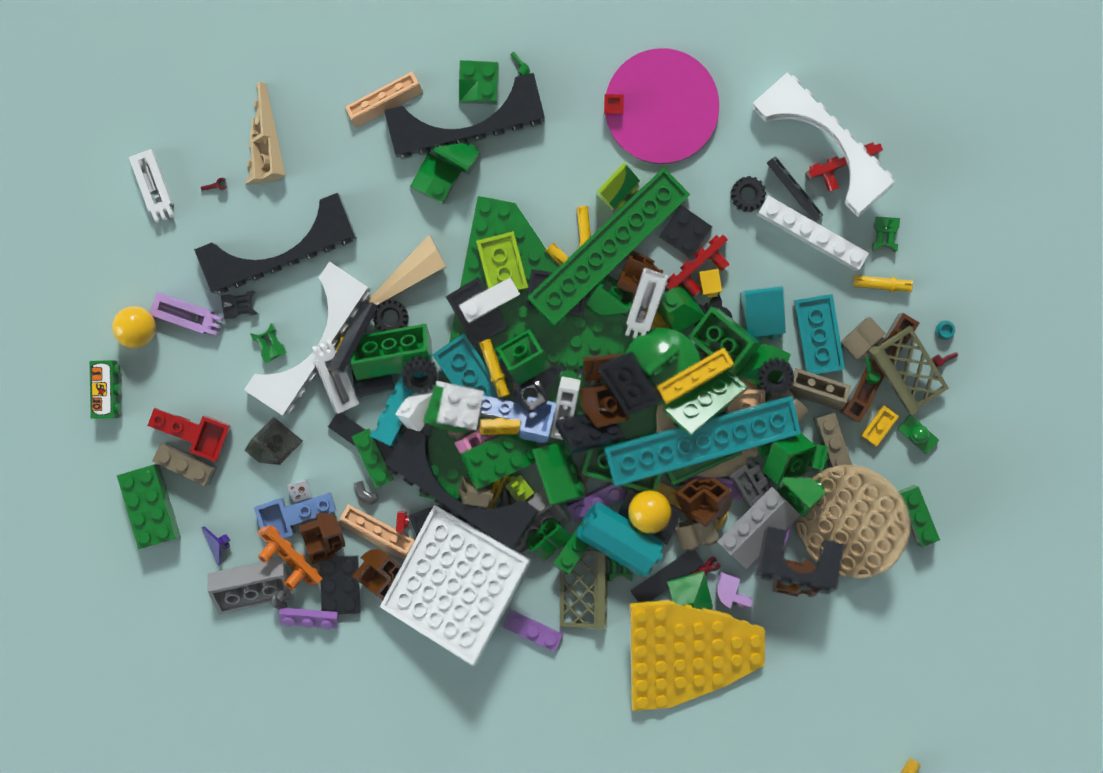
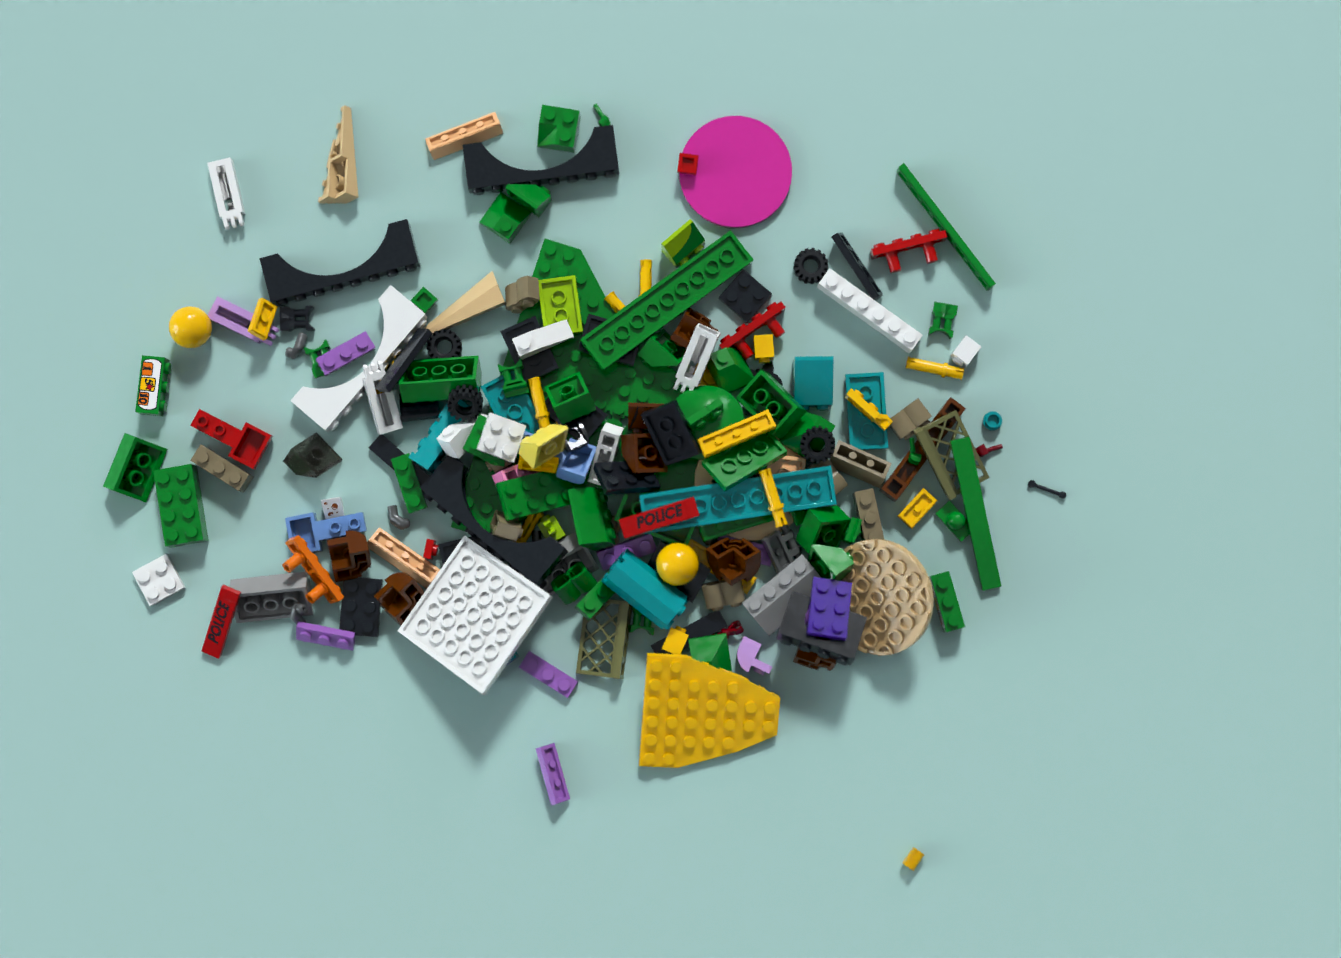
camera: 10 degrees right, 5 degrees down
(96, 473) = (134, 466): none -> green slope
(136, 580) = (158, 579): none -> white plate
(204, 617) = (221, 621): none -> red tile
(205, 310) = (262, 319): none -> yellow plate
(214, 185) = (288, 200): dark red hand -> none
(216, 544) = (243, 551): dark purple piece -> none
(244, 334) = (298, 346): none -> dark grey arm
(292, 335) = (345, 353): none -> medium lavender plate
(364, 272) = (424, 300): none -> green plate
(462, 256) = (522, 294): none -> dark tan brick
(468, 351) = (518, 385): none -> green piece
(503, 409) = (543, 444): none -> light yellow slope
(549, 727) = (552, 773): none -> medium lavender plate
(627, 469) = (659, 517): none -> red tile
(655, 585) = (675, 640): none -> yellow brick
(742, 444) = (773, 498): none -> yellow pin
(790, 101) = (860, 180): white arch -> none
(806, 540) = (829, 608): none -> dark purple plate
(822, 334) = (868, 409): none -> yellow hinge
(877, 137) = (943, 224): none -> green tile
(911, 264) = (965, 352): none -> white brick
(938, 425) = (975, 513): none -> green tile
(990, 388) = (1032, 483): none -> black hinge

